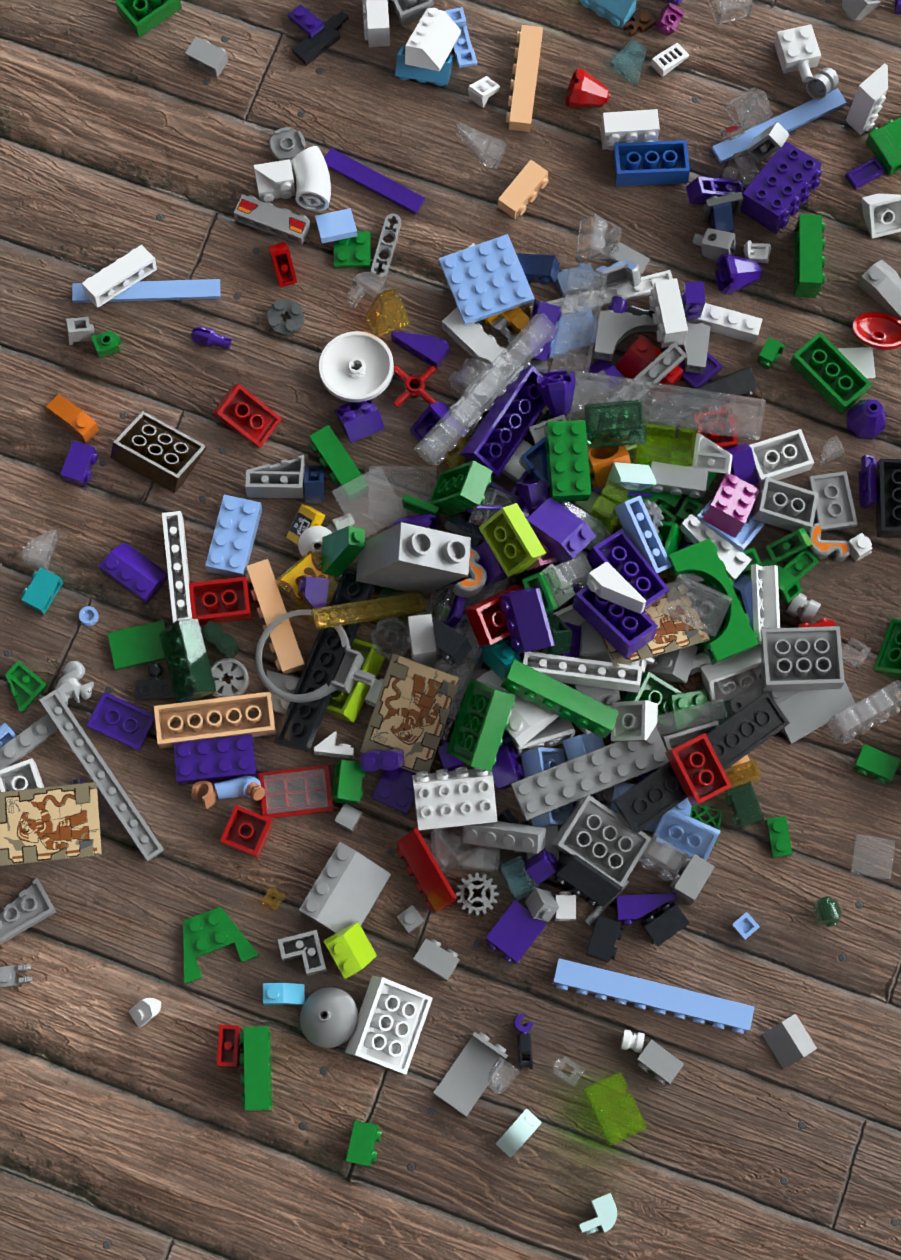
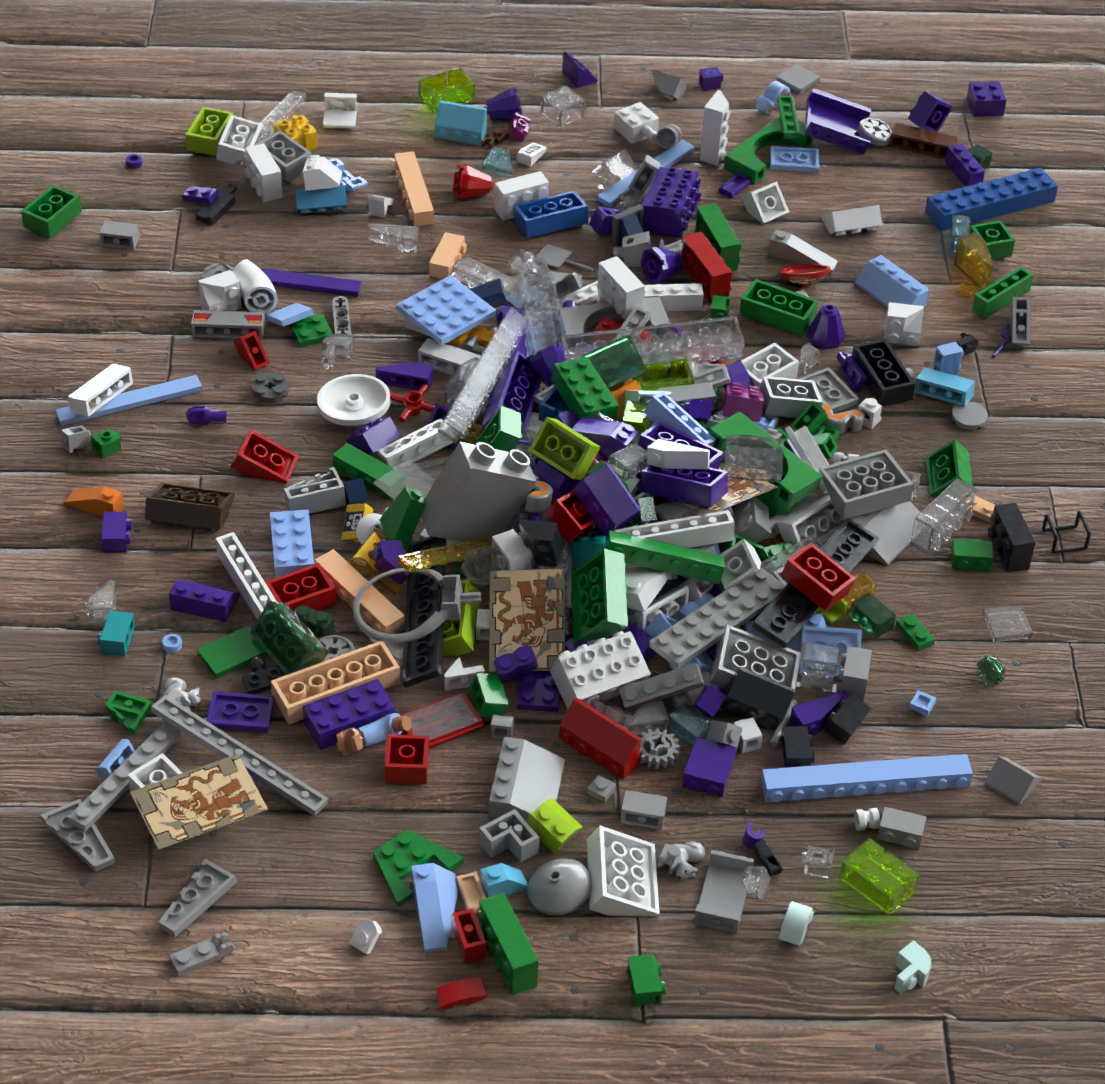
camera: 20 degrees left, 30 degrees down
(203, 1098) = (462, 991): none -> red slope
(217, 991) = (435, 901): none -> light blue wedge
(253, 994) = (470, 890): none -> light nougat tile
(272, 892) = (457, 809): clear yellow plate -> none
(387, 313) = (364, 356): clear yellow slope -> none
(394, 451) = (417, 446): none -> white fence
(445, 1020) = (678, 855): none -> light grey animal
(548, 235) = (474, 274): none -> clear brick
(633, 219) = (557, 256): none -> light grey piece
(675, 506) = (697, 408): none -> dark purple brick
(693, 299) = (640, 268): dark purple brick -> none
(778, 294) = (706, 266): none -> red brick

